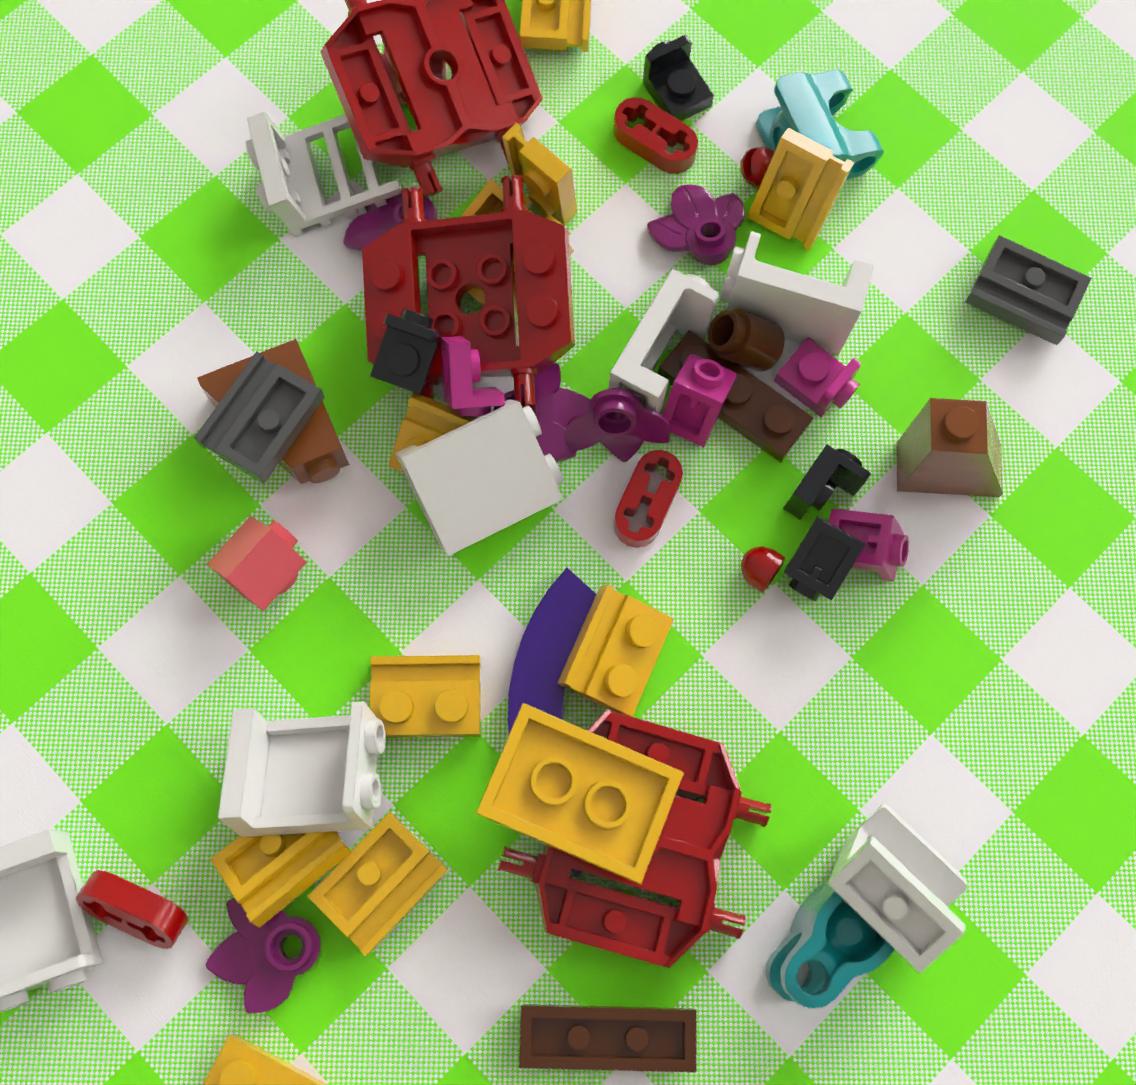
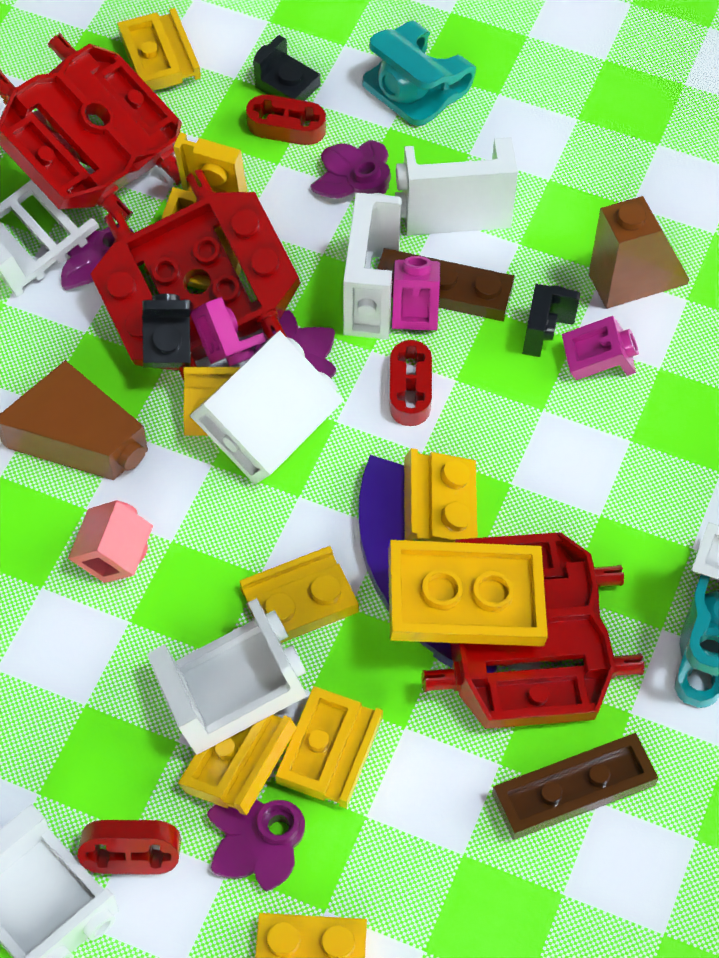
camera: 20 degrees left, 15 degrees down
(260, 417) = (67, 422): dark grey plate -> none
(617, 423) = (364, 333): magenta plate -> none
(746, 339) = (434, 235): reddish brown brick -> none
(755, 164) = (384, 112): red hinge -> none
(761, 566) = (526, 397): red hinge -> none
(799, 188) = (424, 112): yellow plate -> none
(818, 378) = (504, 248): dark pink bracket -> none
(823, 560) = (573, 369): black bracket -> none
(1028, 290) = (636, 128): dark grey plate -> none

